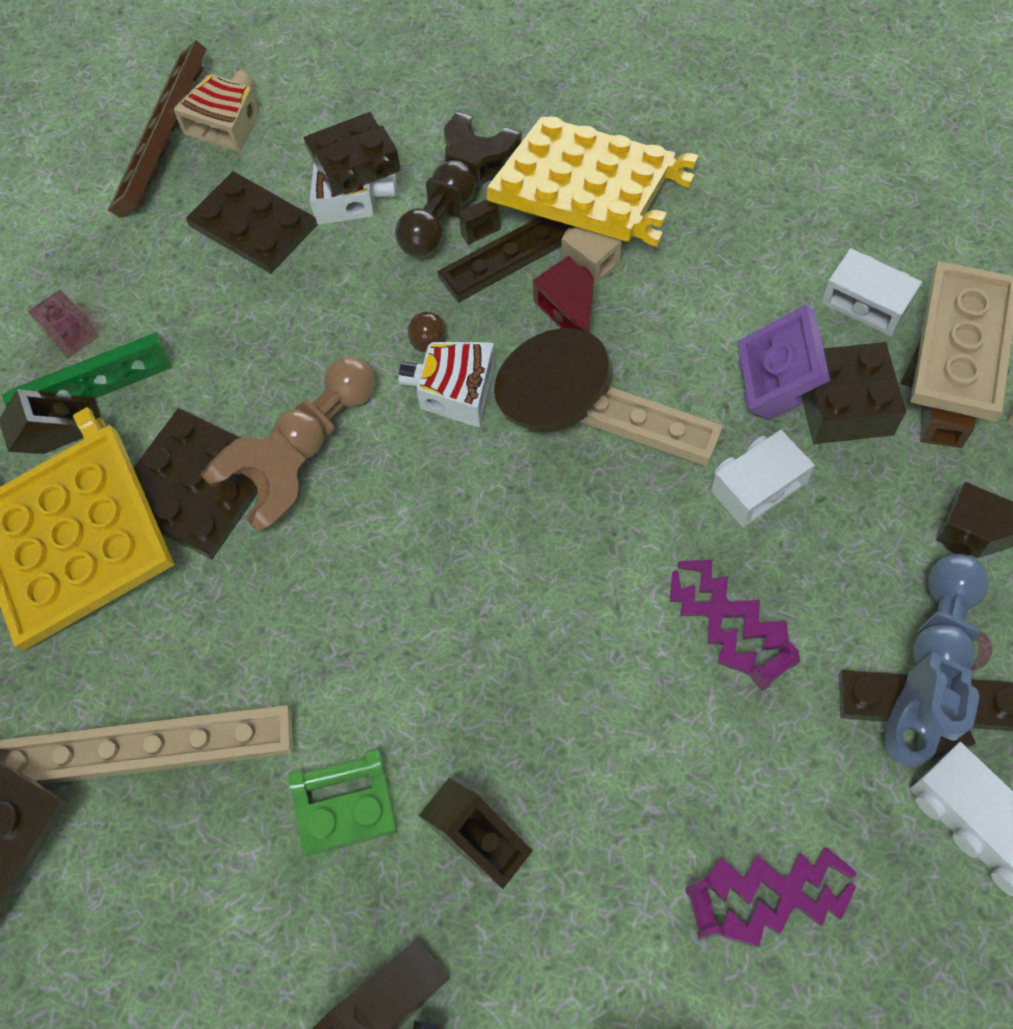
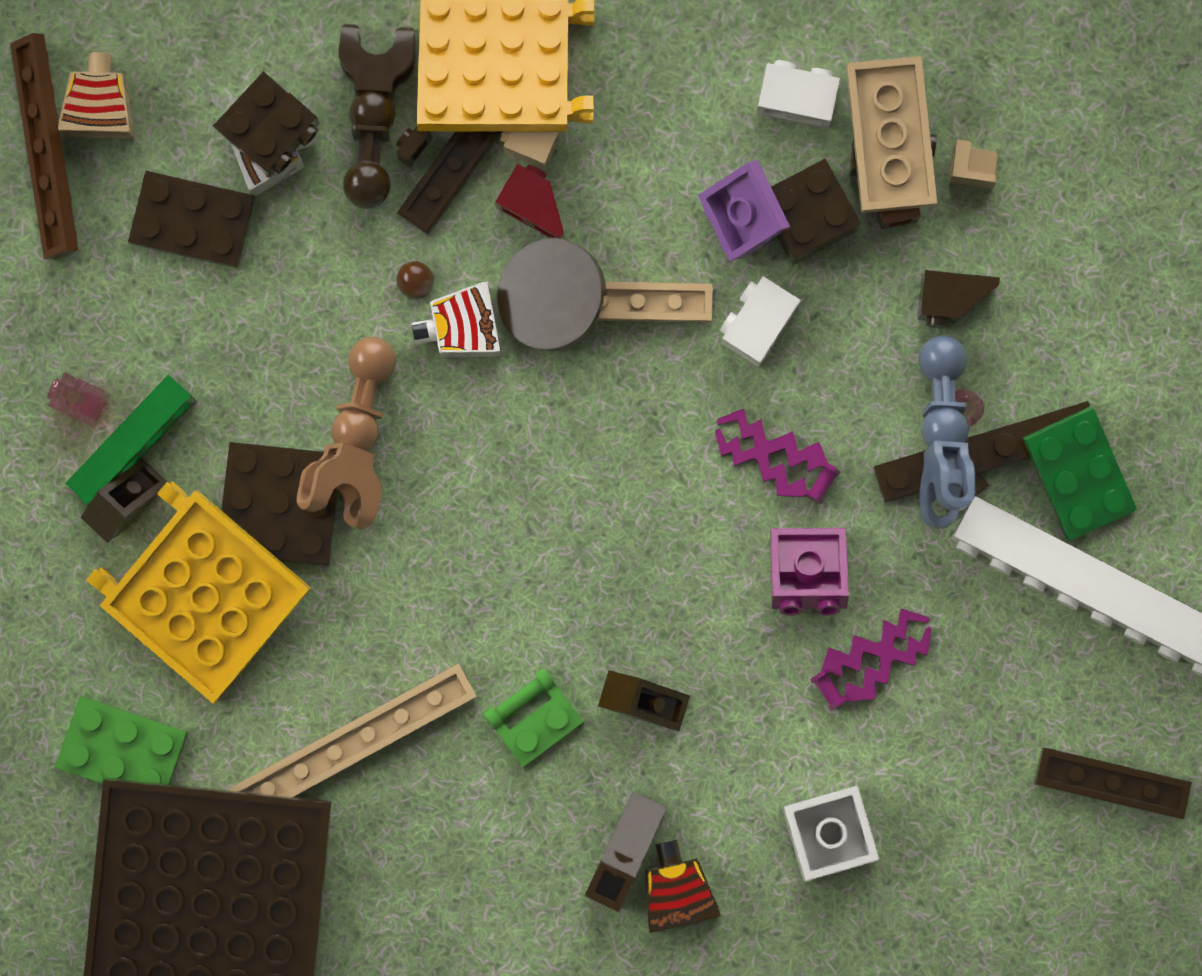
camera: 25 degrees left, 20 degrees up
(728, 757) = (809, 570): none -> magenta plate

